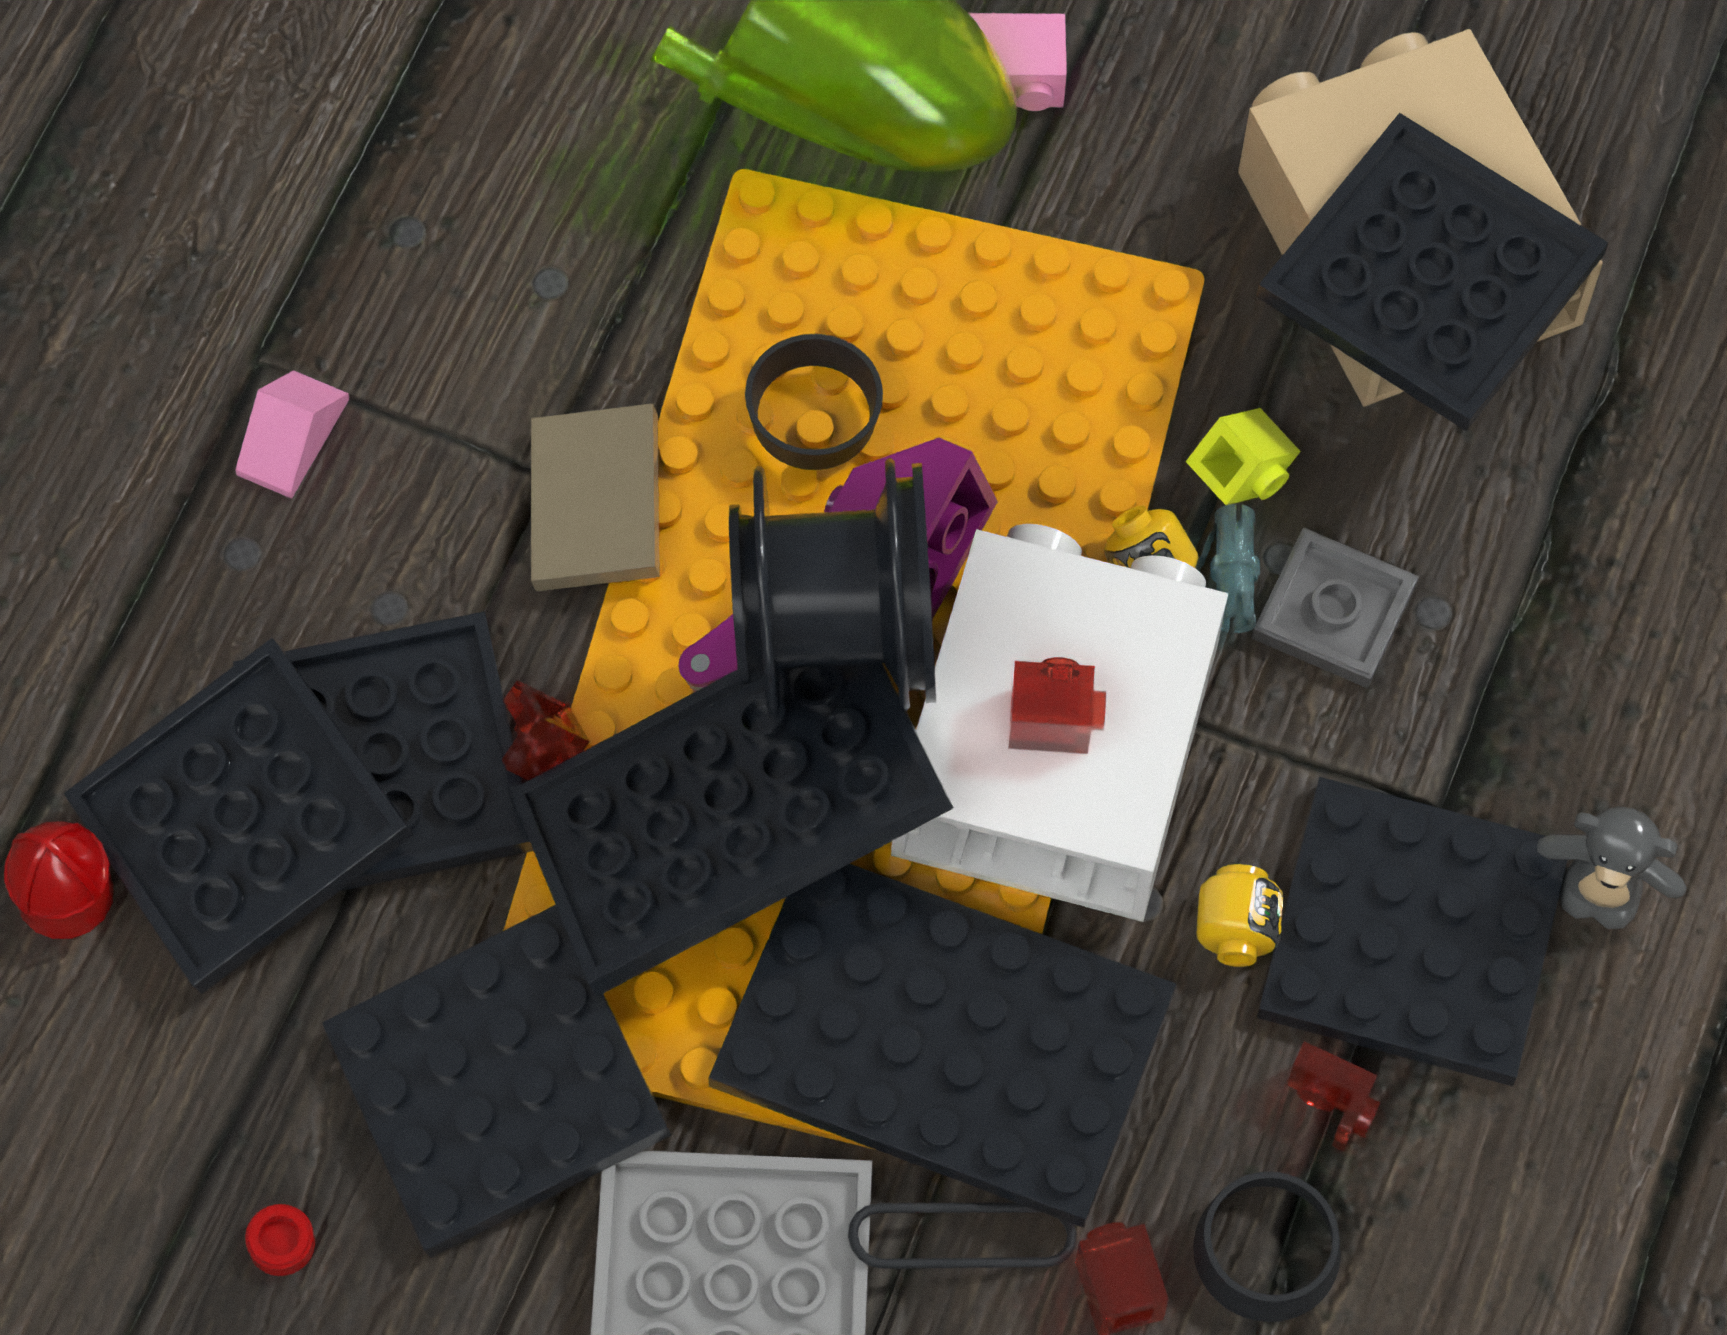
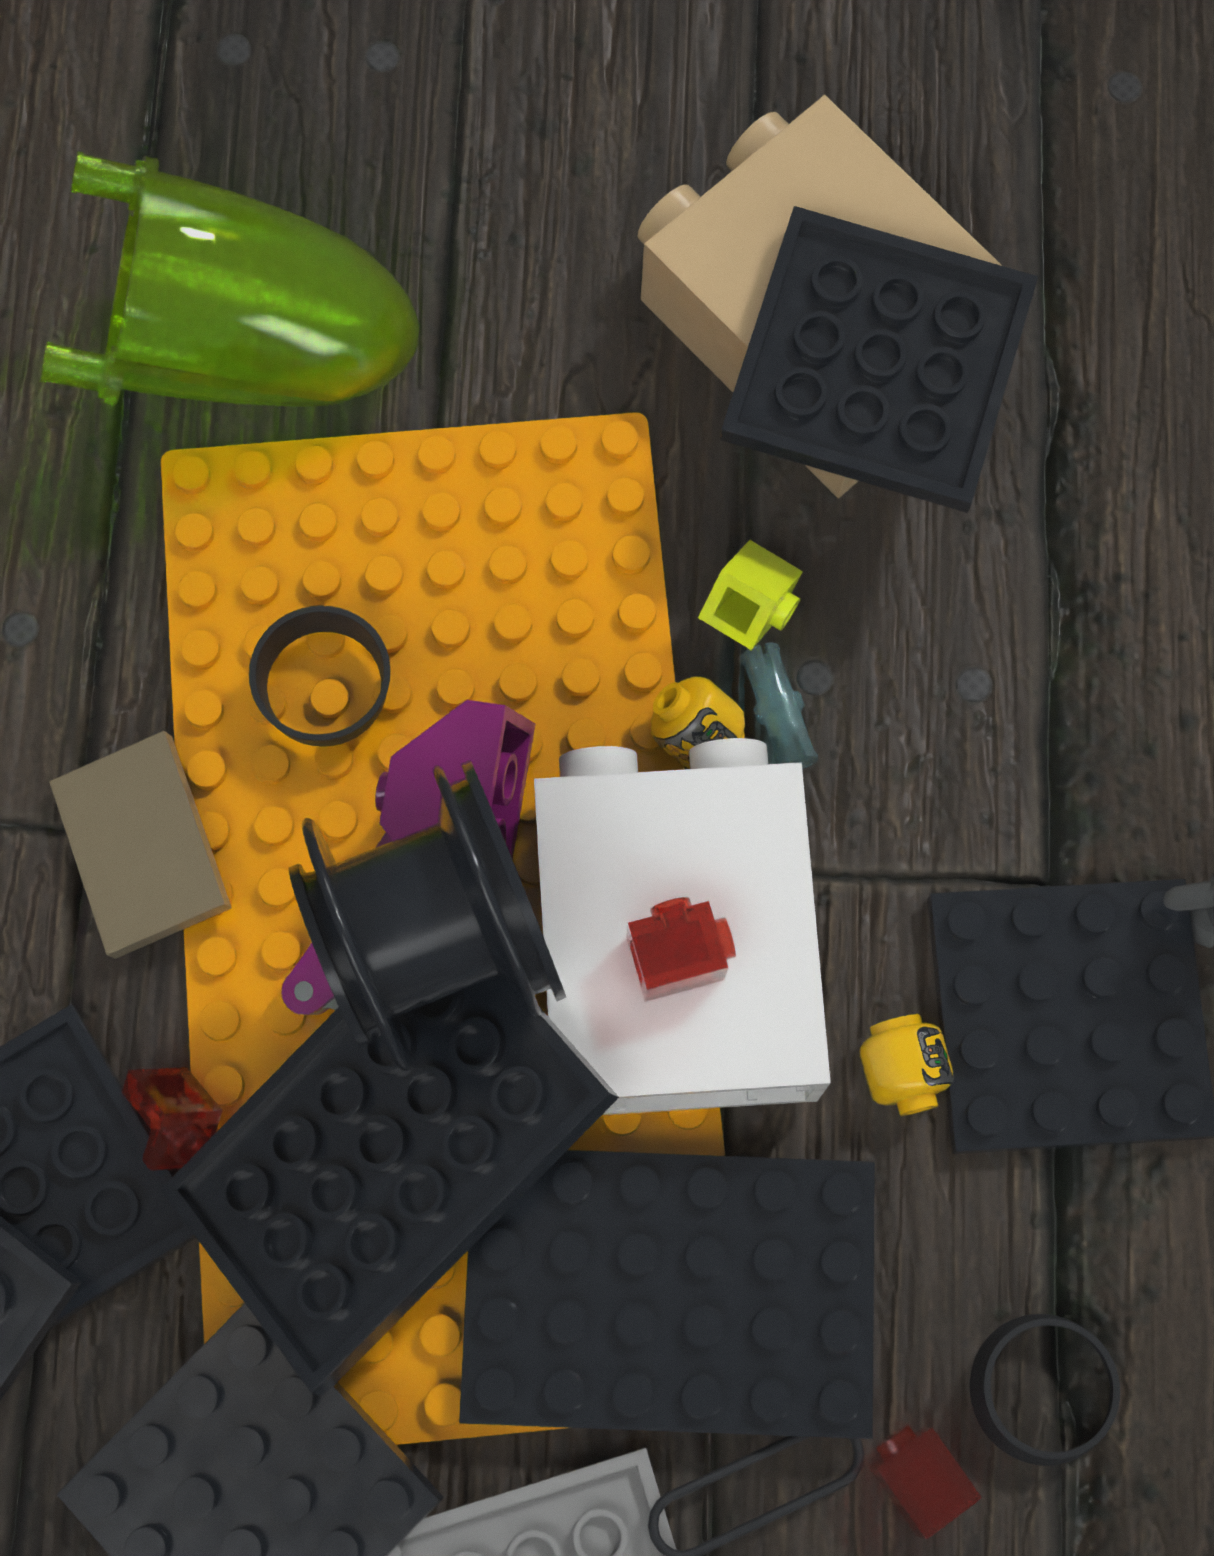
camera: 20 degrees left, 10 degrees up
(1032, 54) = (407, 245): bright pink slope -> none
(1335, 607) = (884, 713): flat silver tile -> none
(1335, 1083) = (1048, 1206): clear red bracket -> none

